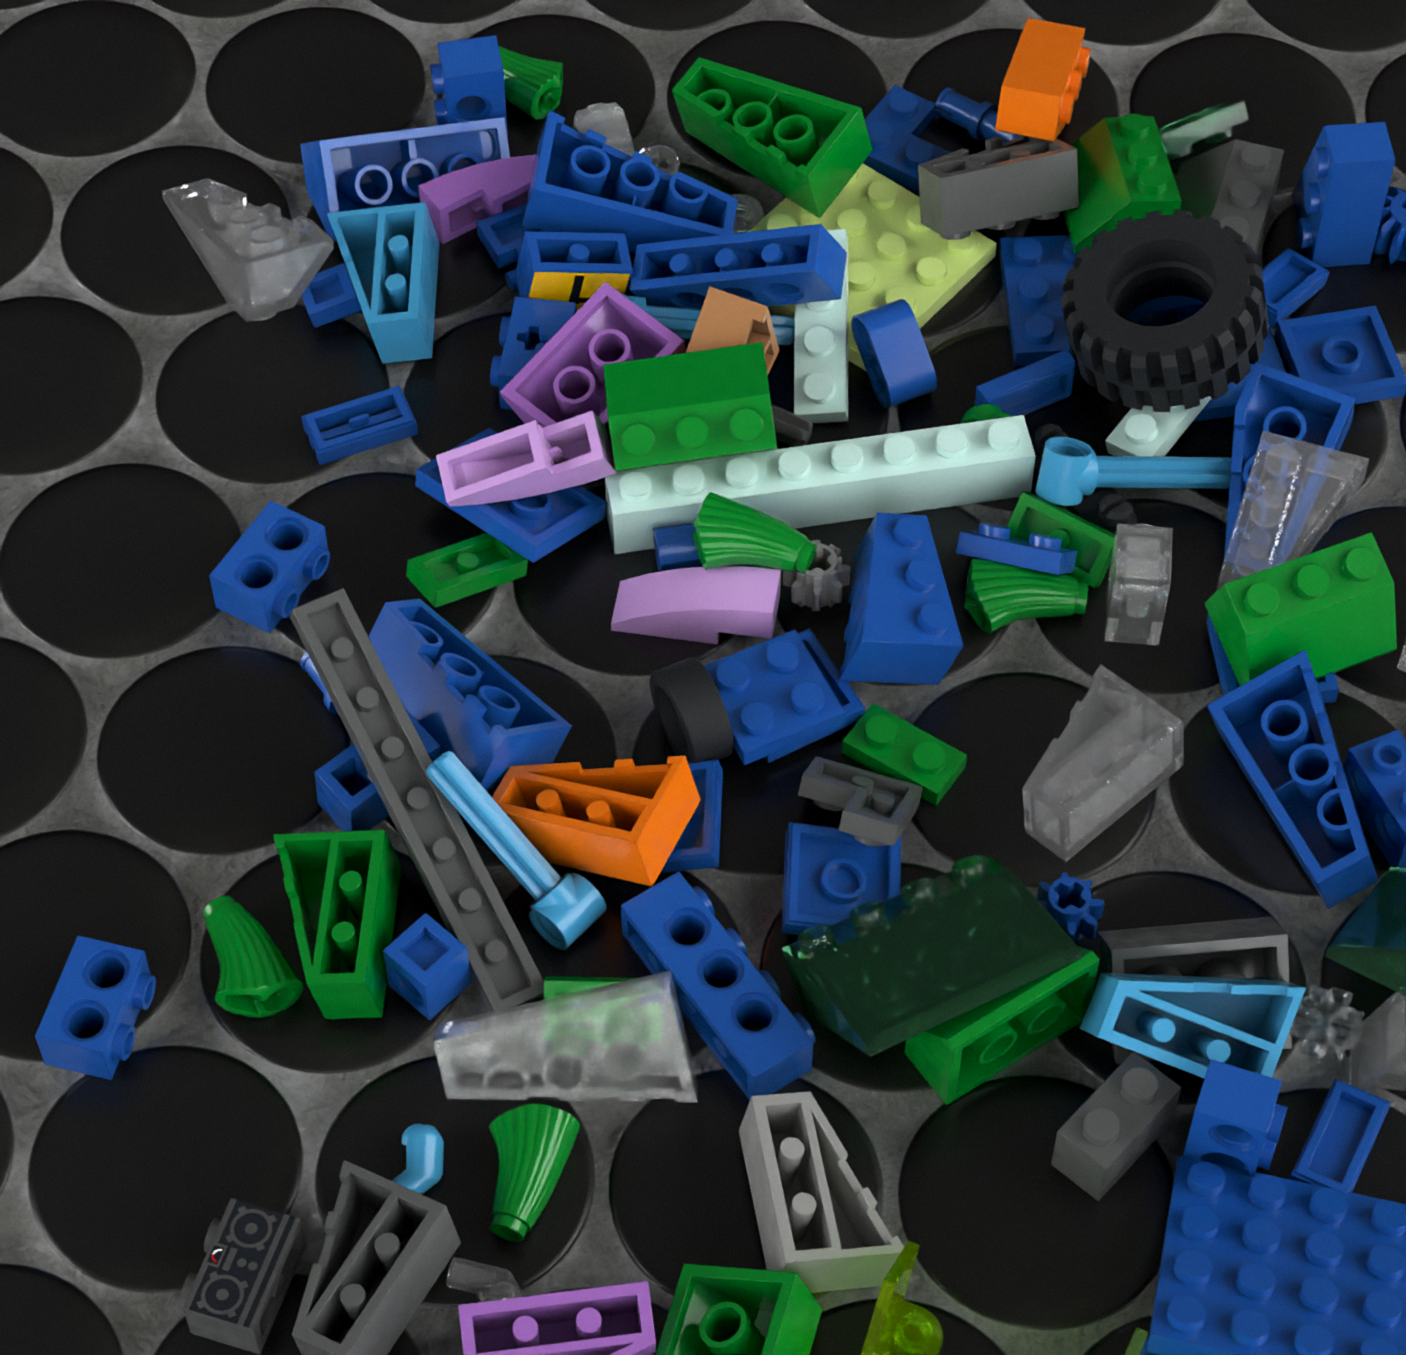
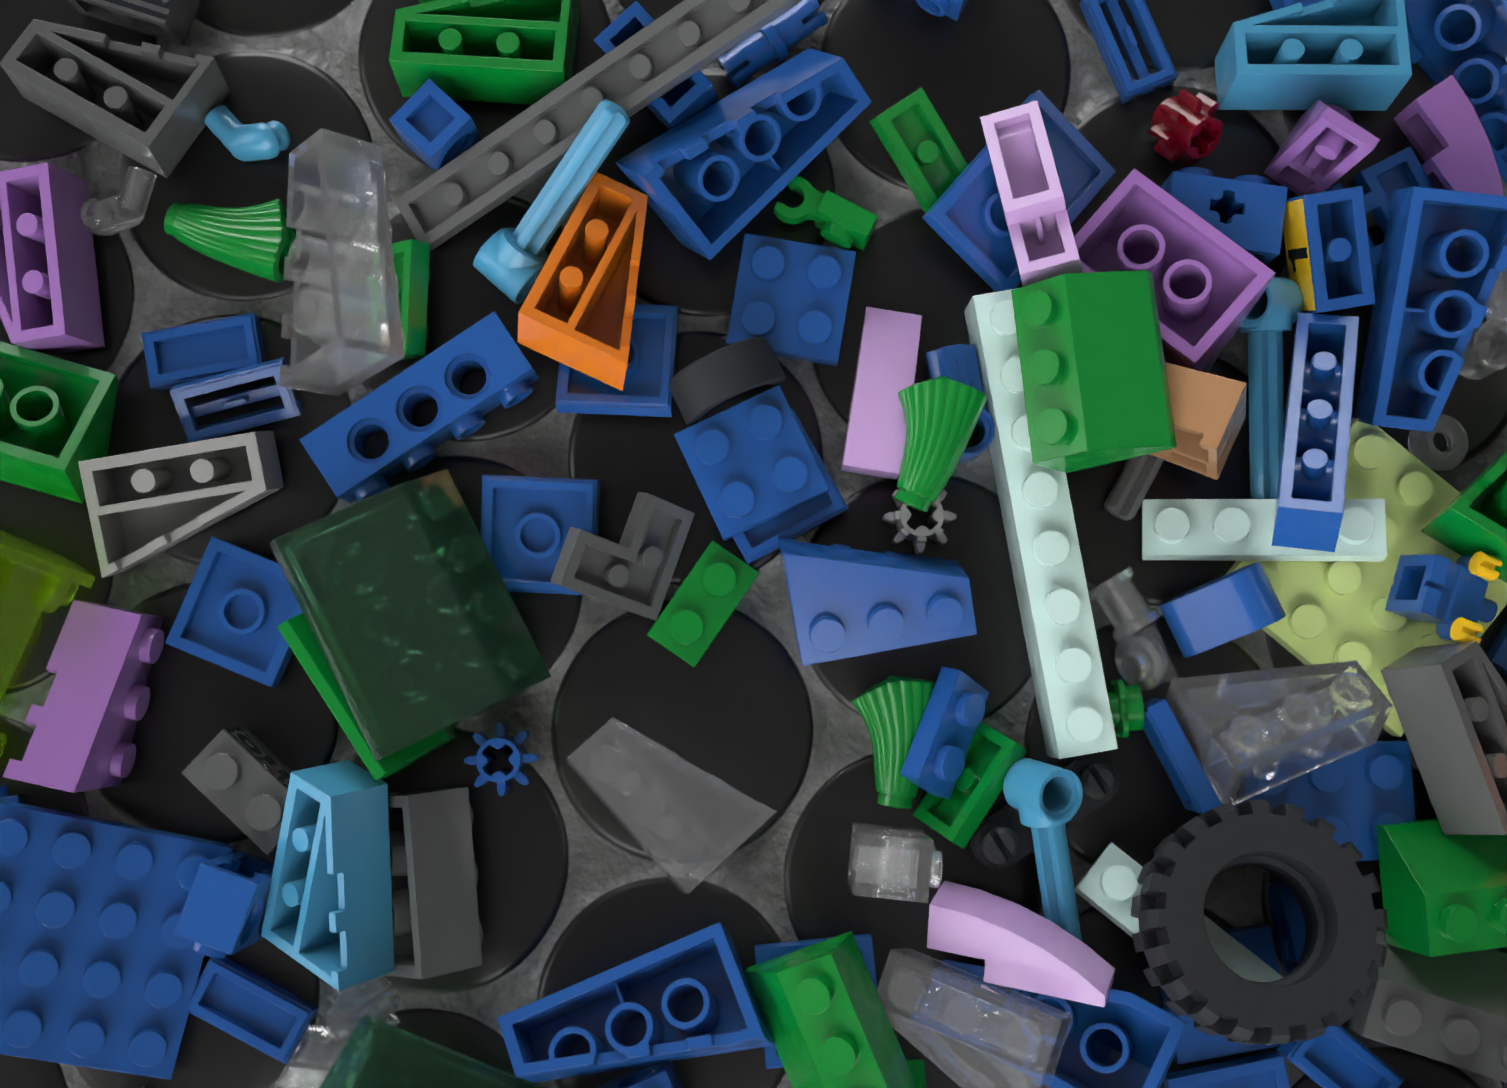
camera: 90 degrees right, 30 degrees up
(451, 374) = (1186, 127): none -> dark red gear
(480, 273) = (1320, 149): none -> medium lavender slope
(527, 637) = (839, 219): none -> green plate
(604, 683) = (792, 297): none -> blue plate
(652, 1206) = (202, 349): none -> blue tile
(697, 1164) = (290, 408): none -> blue tile
(875, 198) = (1445, 593): none -> blue piece
(899, 418) = (1123, 604): none -> clear bush
(932, 1150) = (235, 613): none -> blue plate
(937, 410) = (1144, 659): none -> clear plate
(990, 313) = (1276, 722): none -> clear wedge
(1033, 1279) = (94, 701): none -> medium lavender wedge
(1206, 494) = (1017, 945): none -> lavender slope

